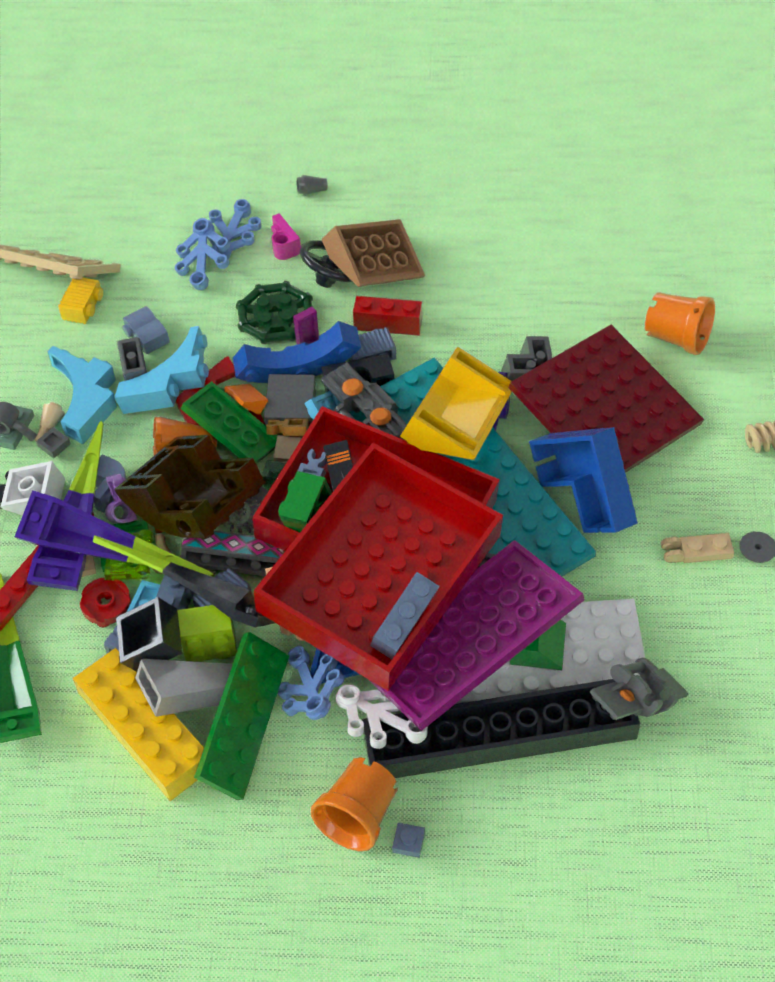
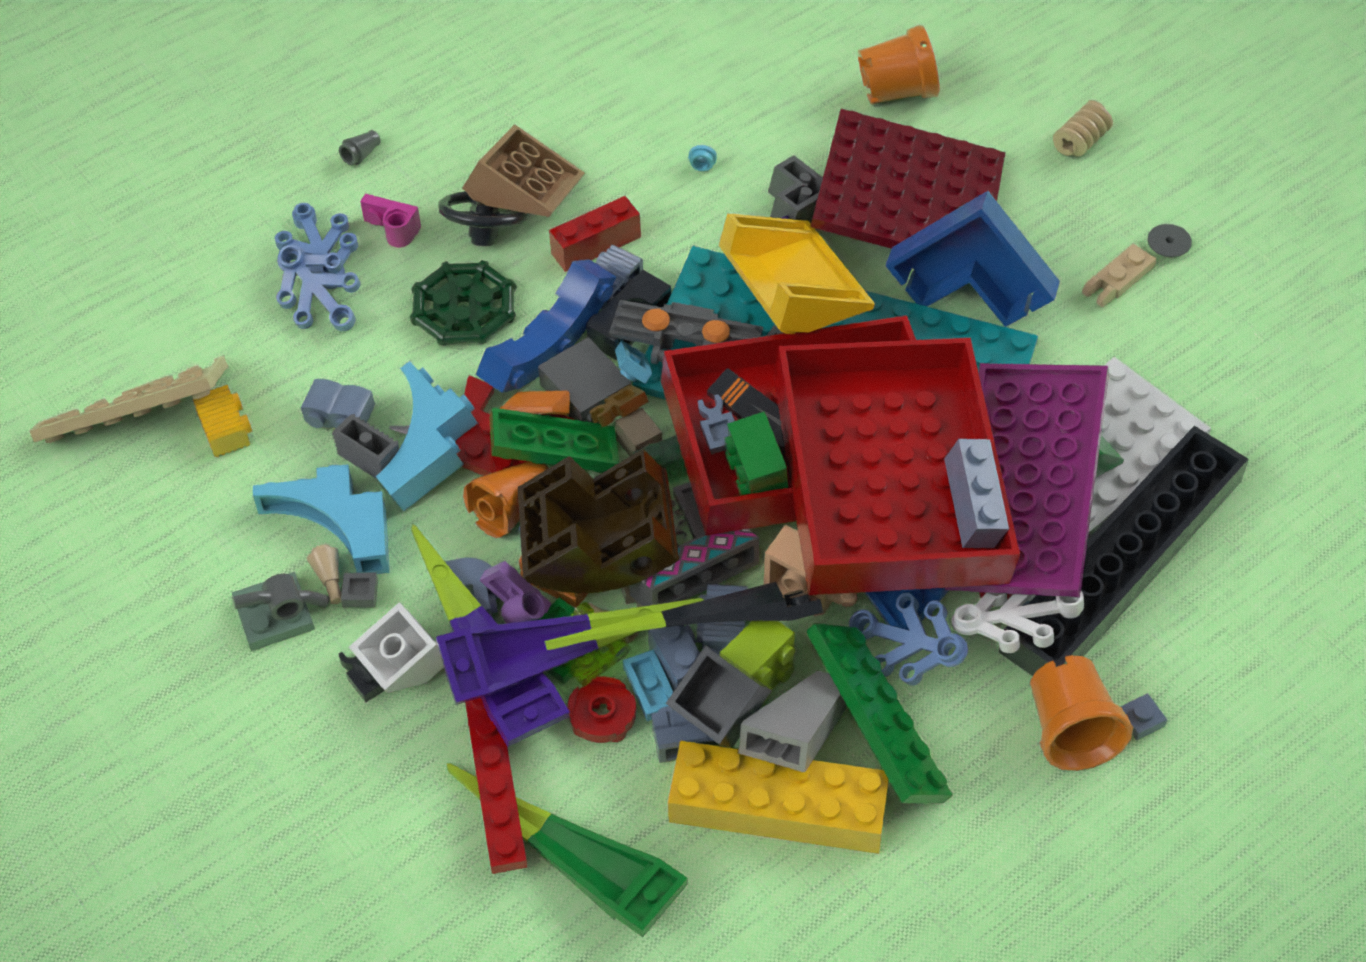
camera: 40 degrees left, 0 degrees up
(306, 326) = (528, 294): magenta tile -> none
(501, 307) = (702, 157): none -> medium azure plate
(640, 694) = (1223, 428): dark grey piece -> none

